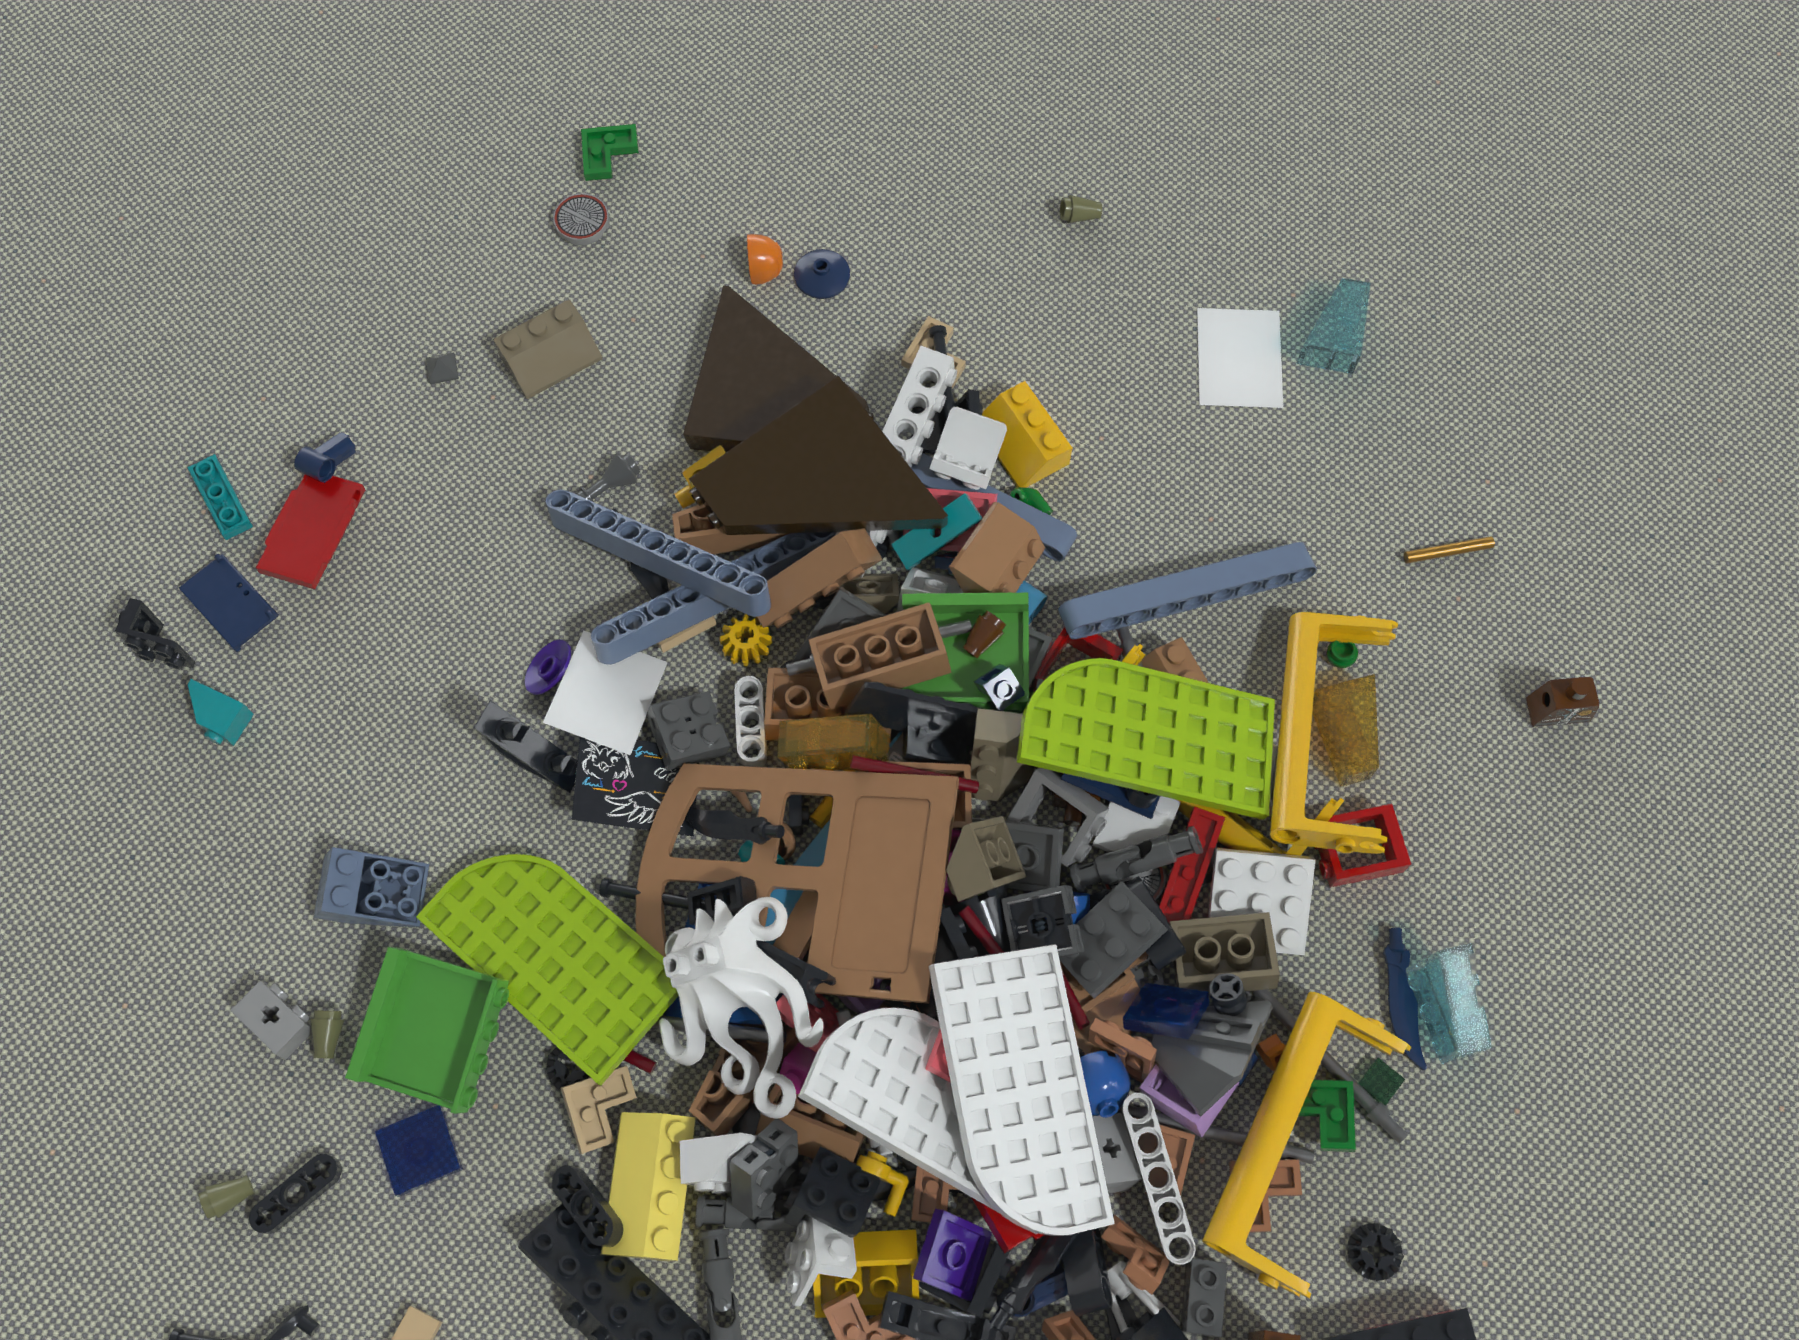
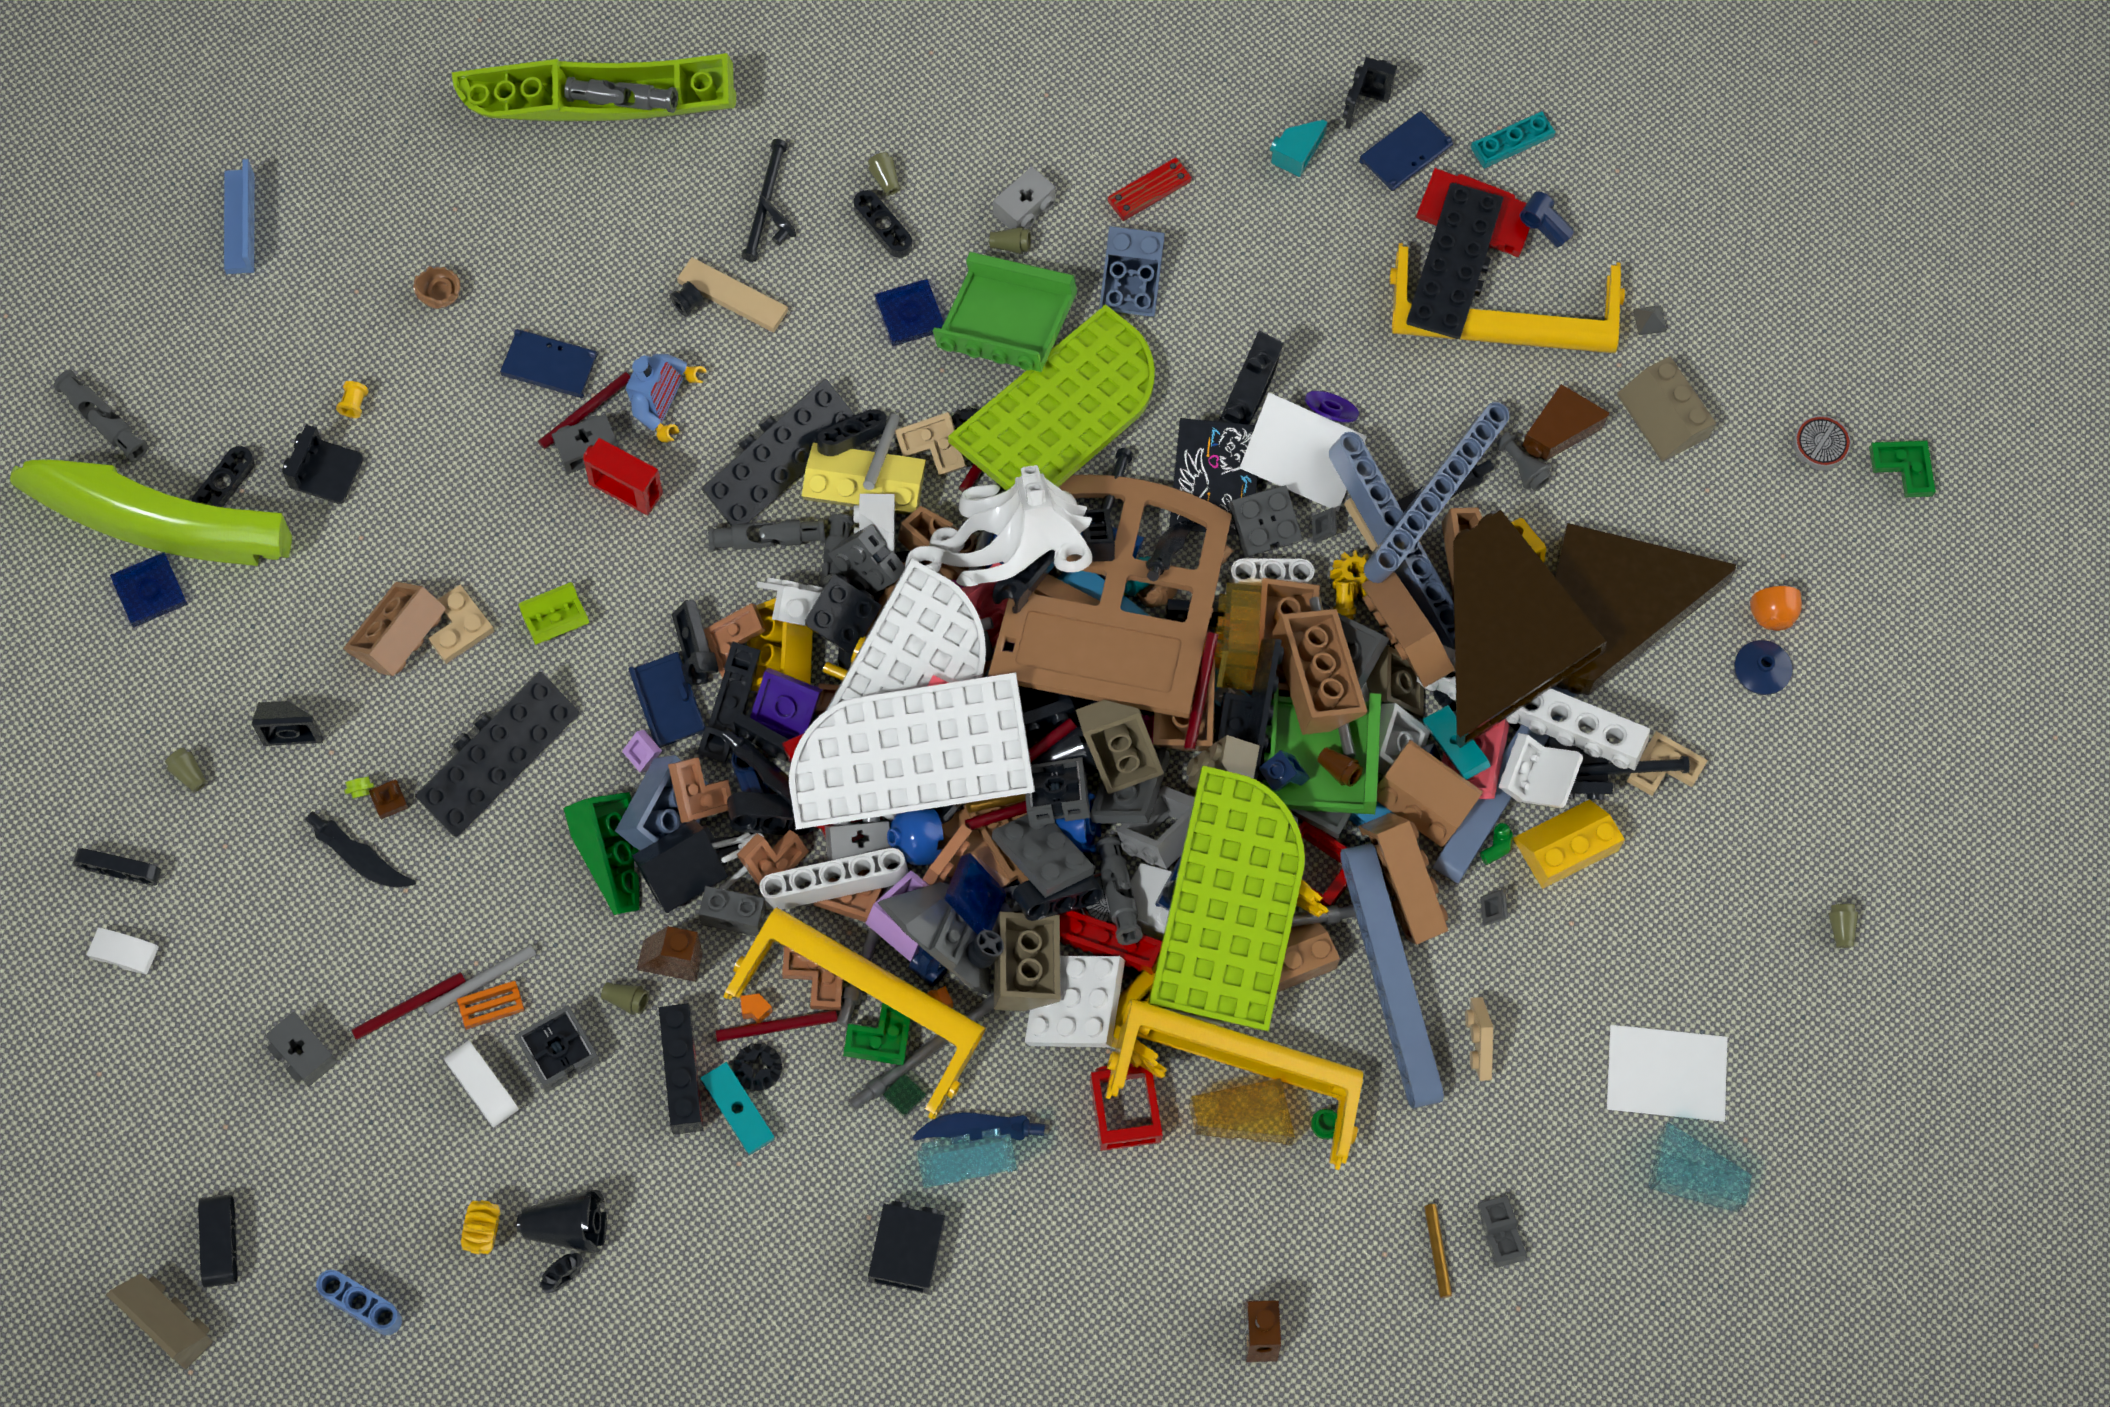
camera: 90 degrees right, 0 degrees up
(262, 877) = (1149, 189): none -> red tile
(374, 543) = (1455, 261): none -> black bracket
(451, 503) = (1520, 327): none -> yellow piece
(564, 444) = (1563, 423): none -> reddish brown slope
(616, 1165) = (881, 452): none -> light grey bar
(687, 672) = (1324, 525): none -> dark grey slope
(780, 644) = (1345, 598): none -> yellow pin
(1083, 574) = (1407, 877): none -> medium nougat wedge
(1099, 502) = (1494, 907): none -> dark grey slope
(1242, 502) = (1481, 1031): none -> tan plate
(1309, 1260) = (755, 1007): none -> orange piece
(1325, 1236) = (776, 1026): none -> dark red bar
(1421, 494) = (1501, 1231): none -> dark grey slope
(1445, 1255) = (729, 1093): none -> teal tile
(1551, 1064) = (906, 1247): none -> black brick

